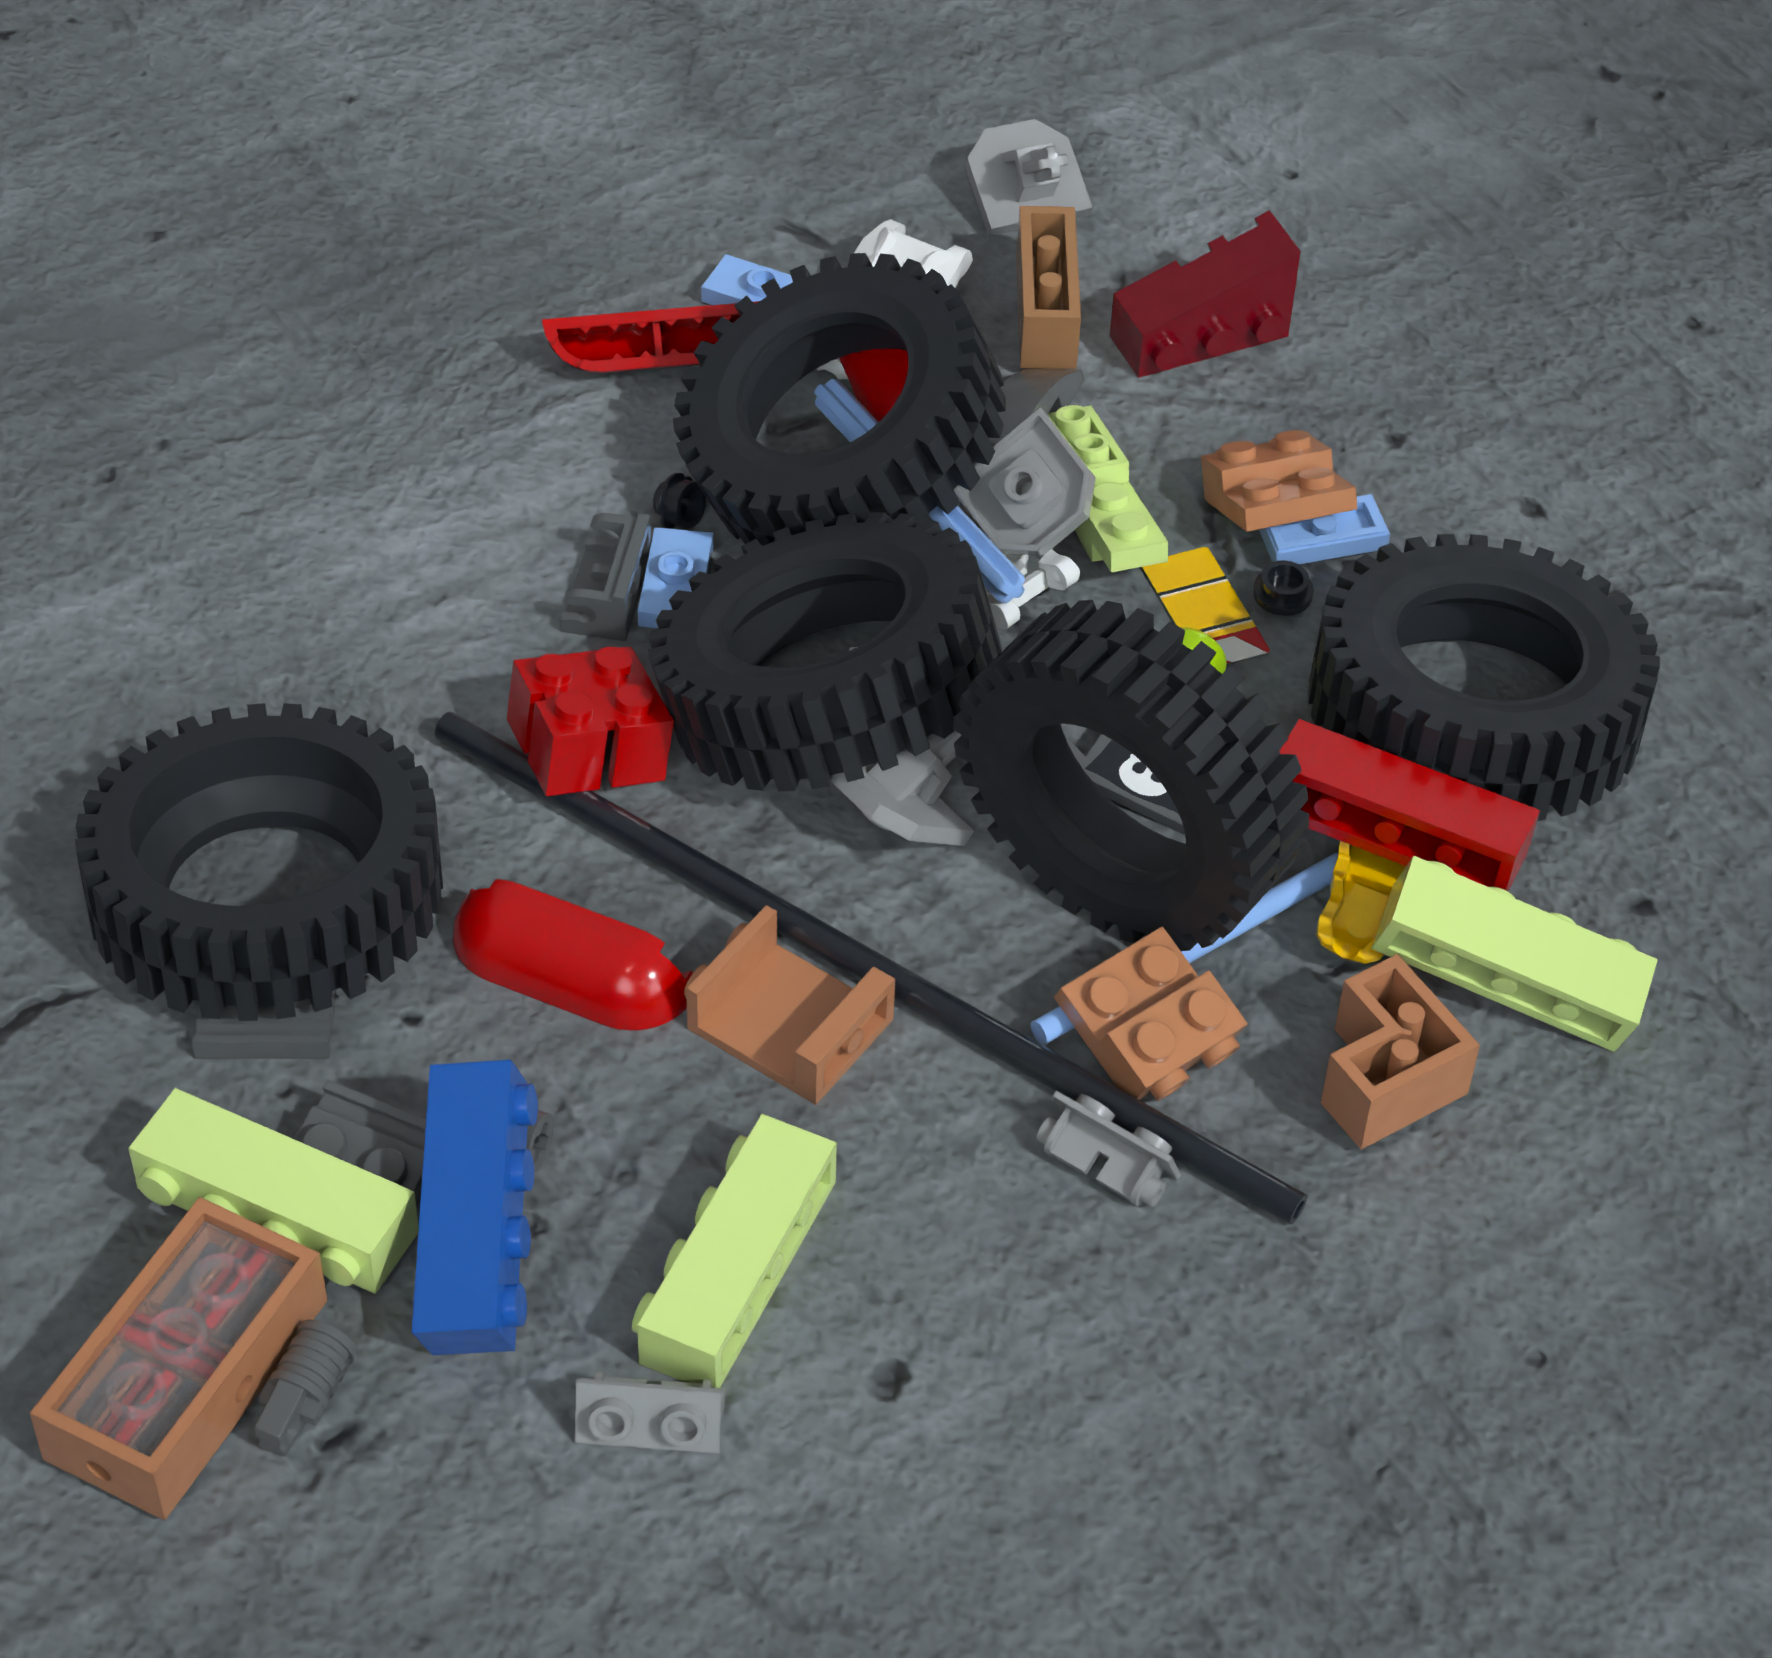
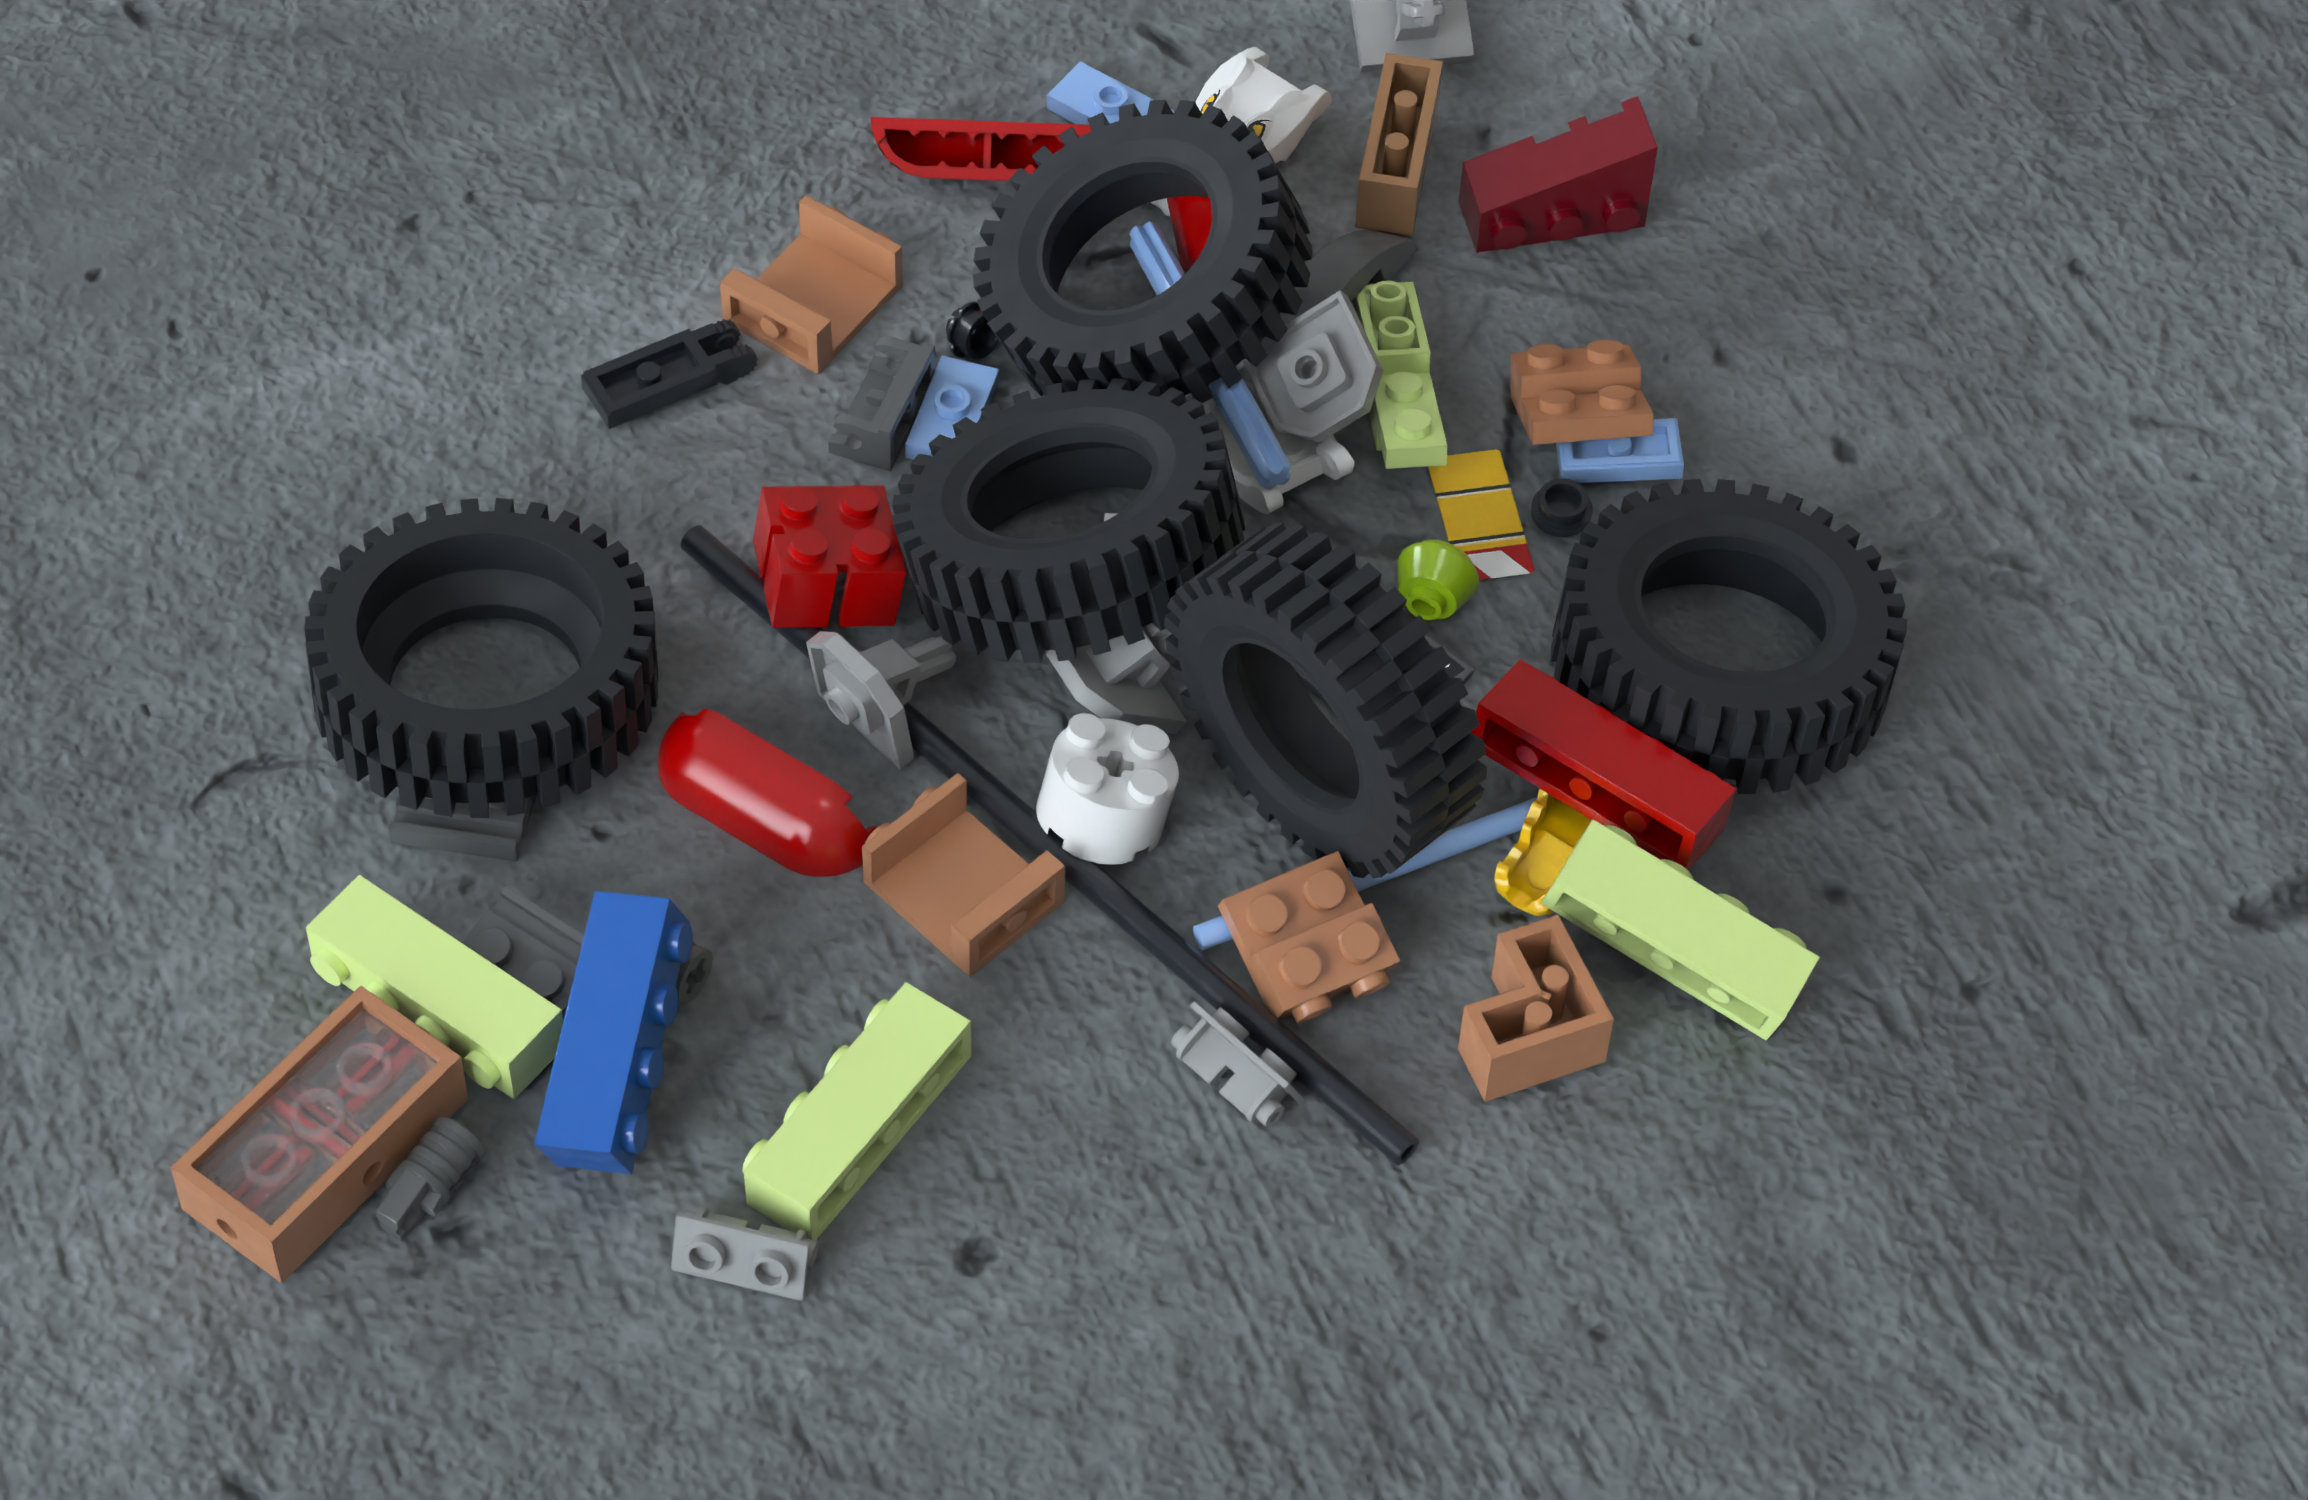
camera: 10 degrees right, 5 degrees up
(387, 576) = (667, 372): none -> black hinge
(518, 482) = (817, 288): none -> nougat panel
(661, 836) = (875, 684): none -> light grey piece
(918, 900) = (1107, 788): none -> white brick

